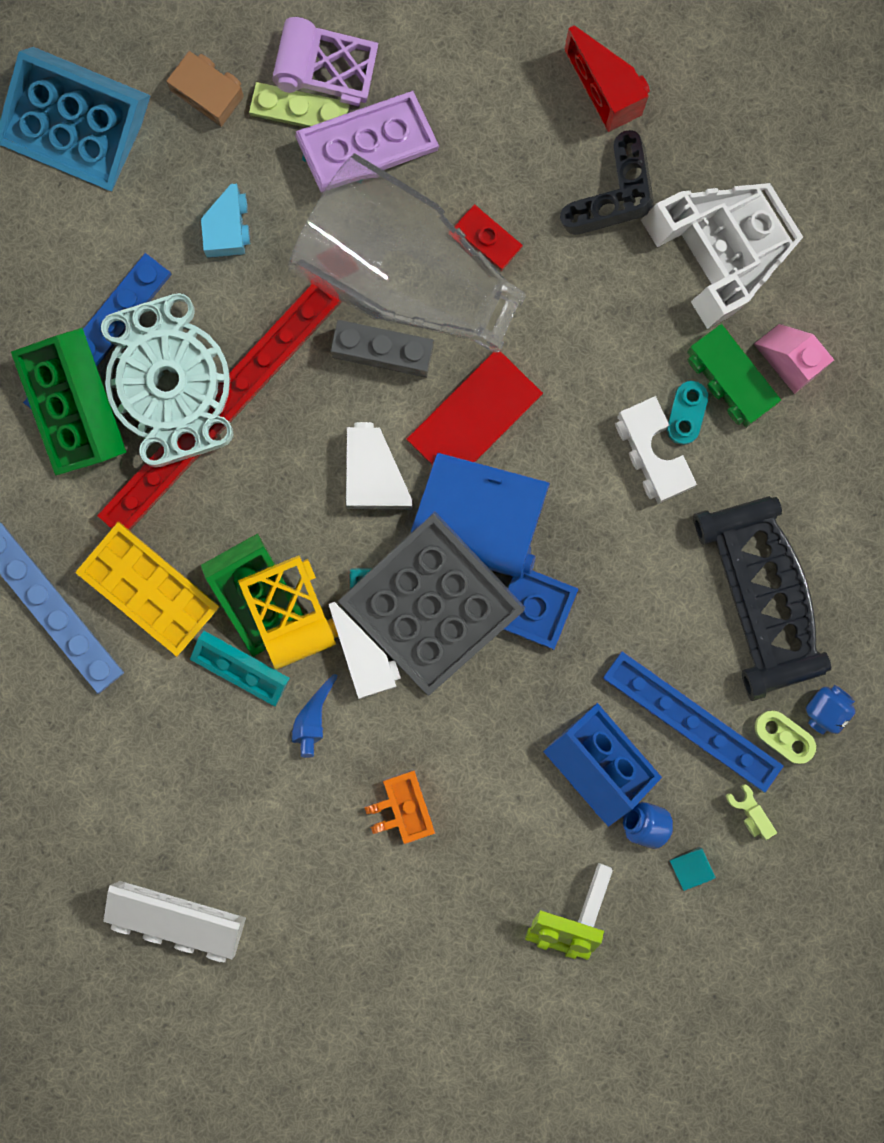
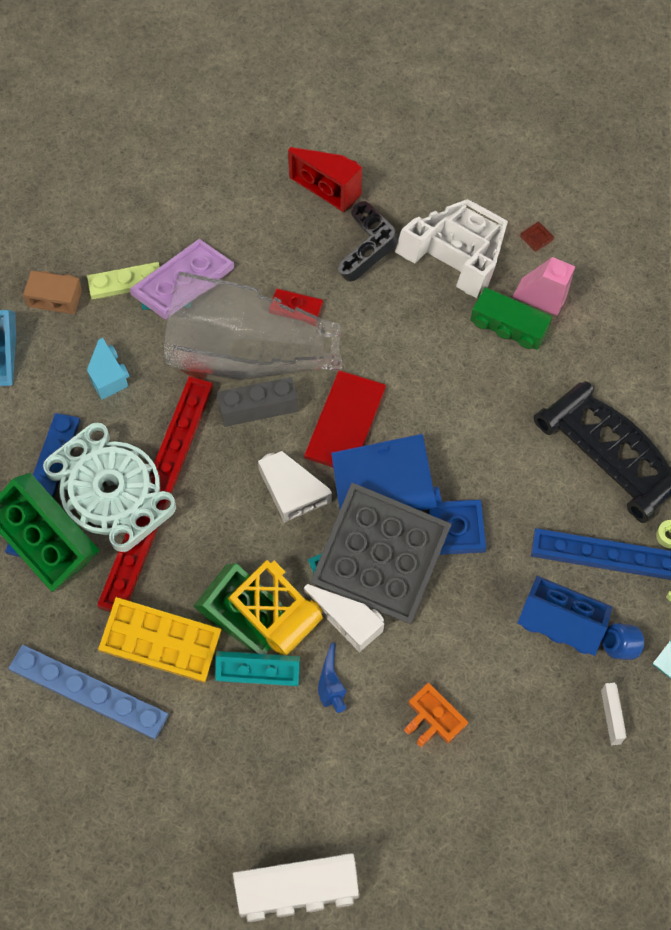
camera: 20 degrees left, 20 degrees down
(298, 56) = (112, 247): lavender piece -> none
(564, 935) = (599, 747): lime plate -> none
(663, 477) = (498, 401): white arch -> none
(687, 412) = (492, 355): teal plate -> none
(827, 275) = (537, 236): none -> clear red tile

